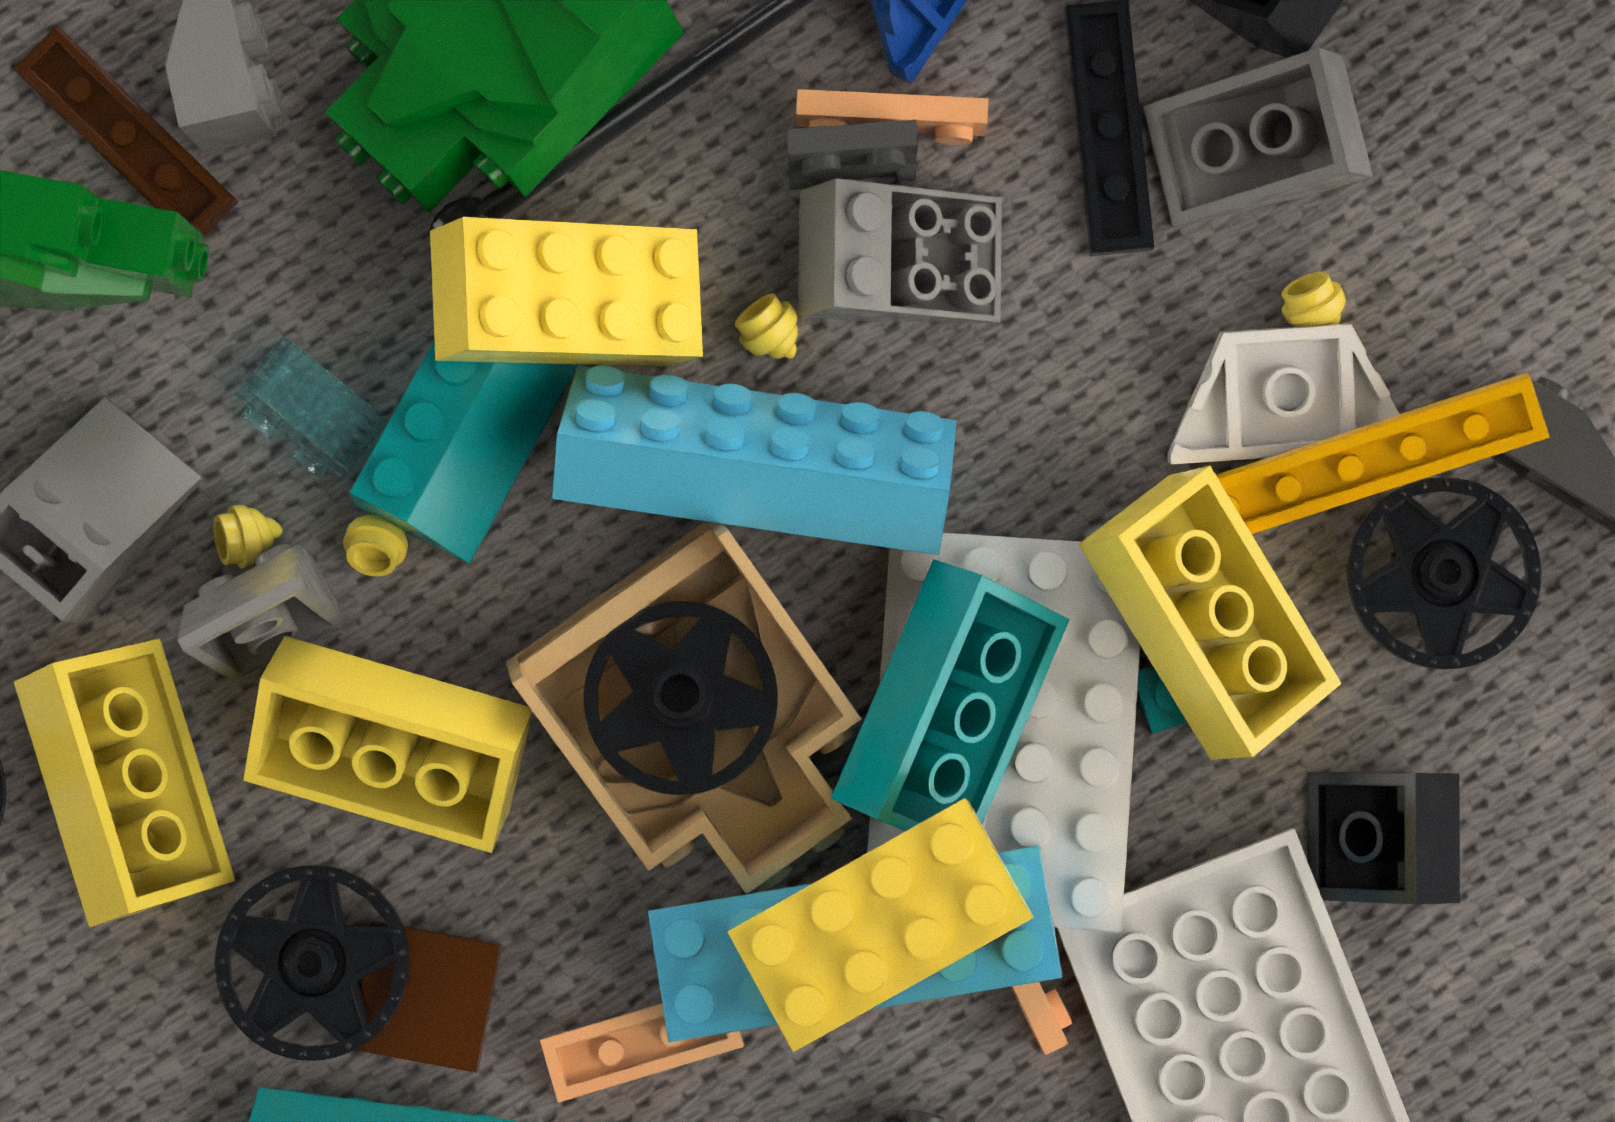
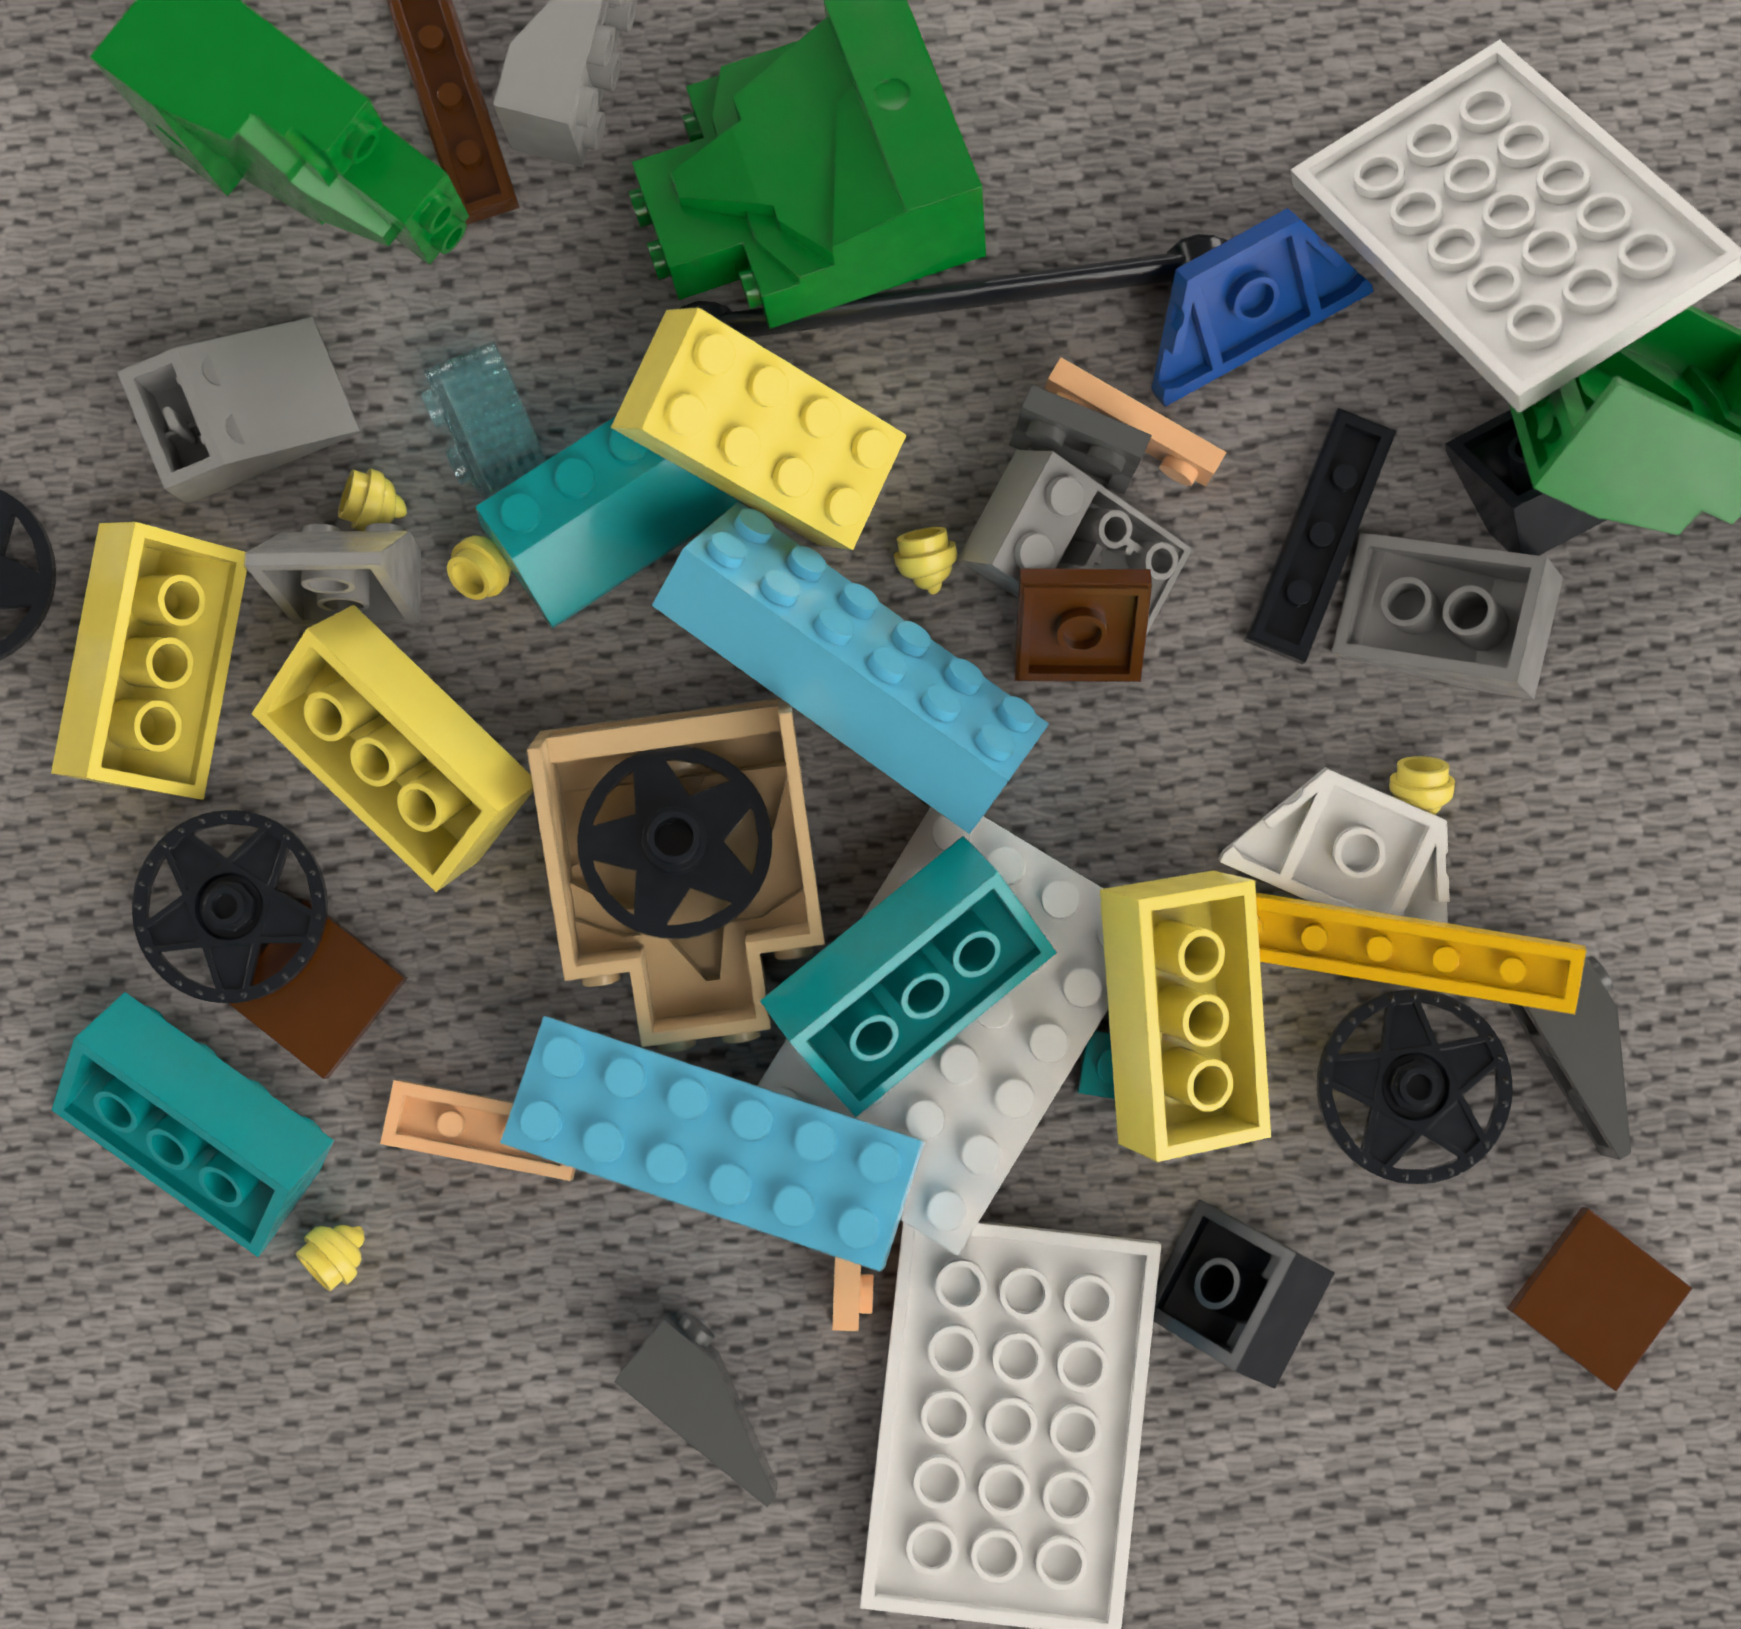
camera: 25 degrees right, 0 degrees up
(880, 924) = (740, 1138): light yellow brick -> none
(940, 317) = (1082, 624): none -> reddish brown tile

